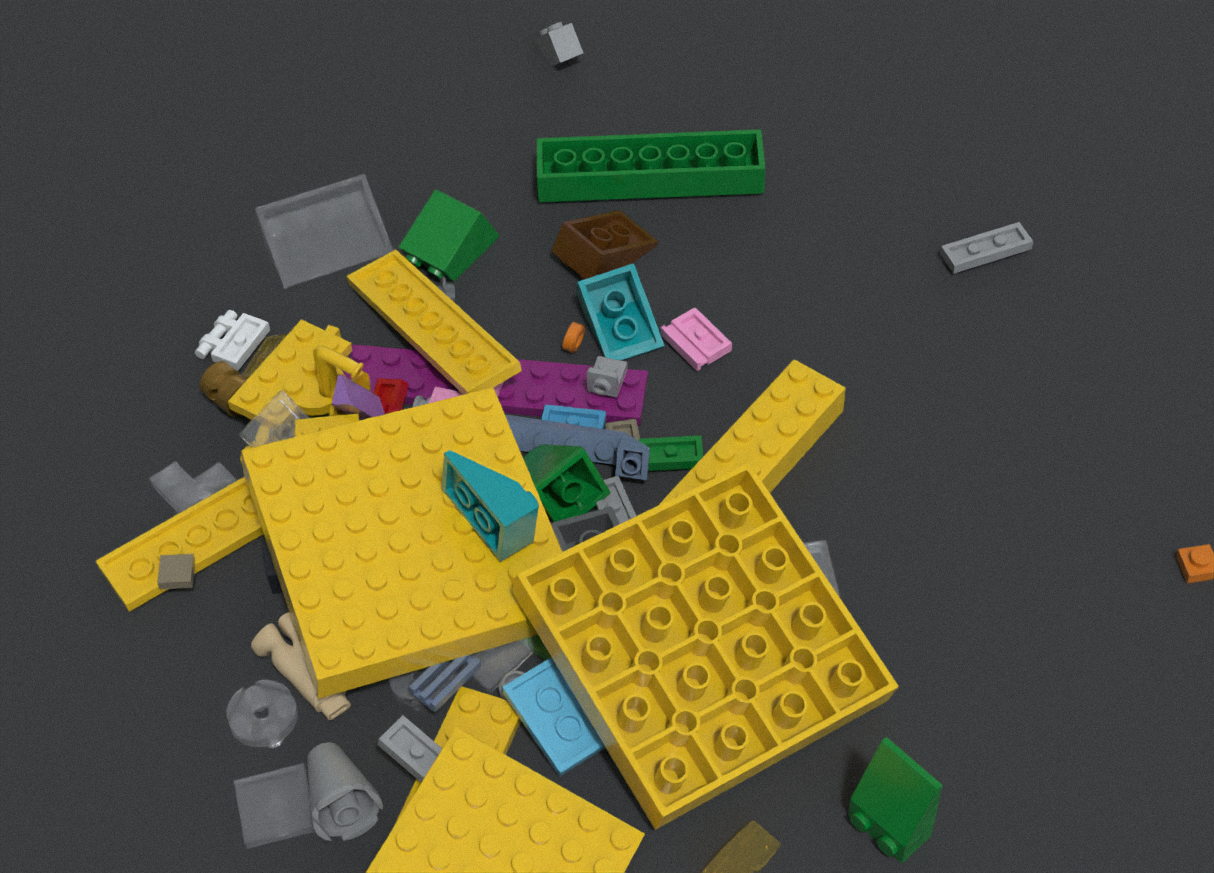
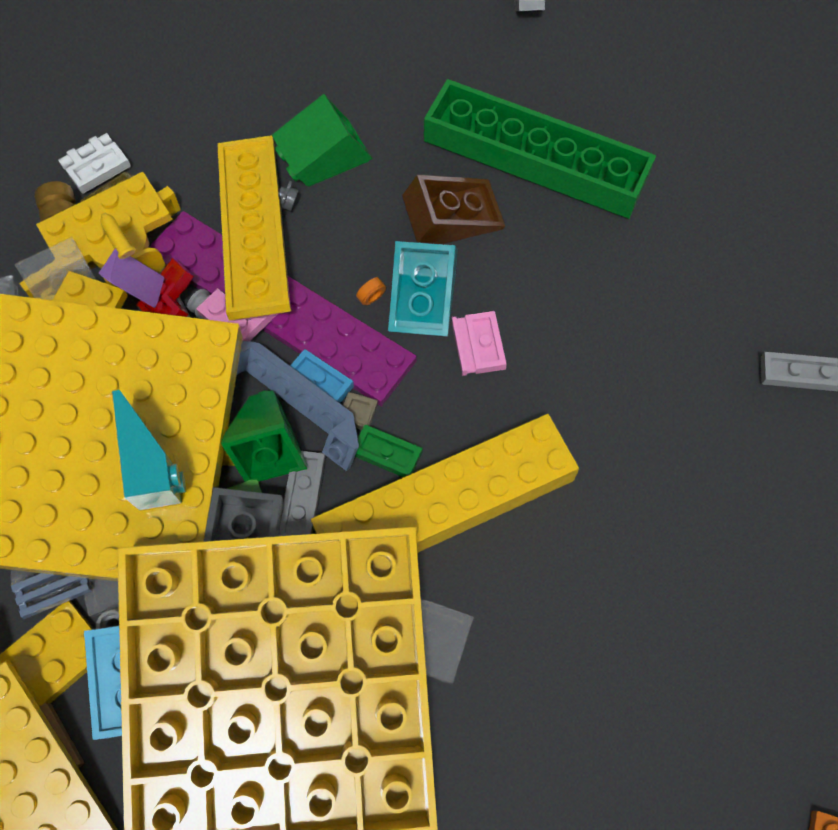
camera: 25 degrees right, 15 degrees up
(323, 231) = (224, 91): clear slope -> none
(606, 376) = (371, 348): light grey bracket -> none

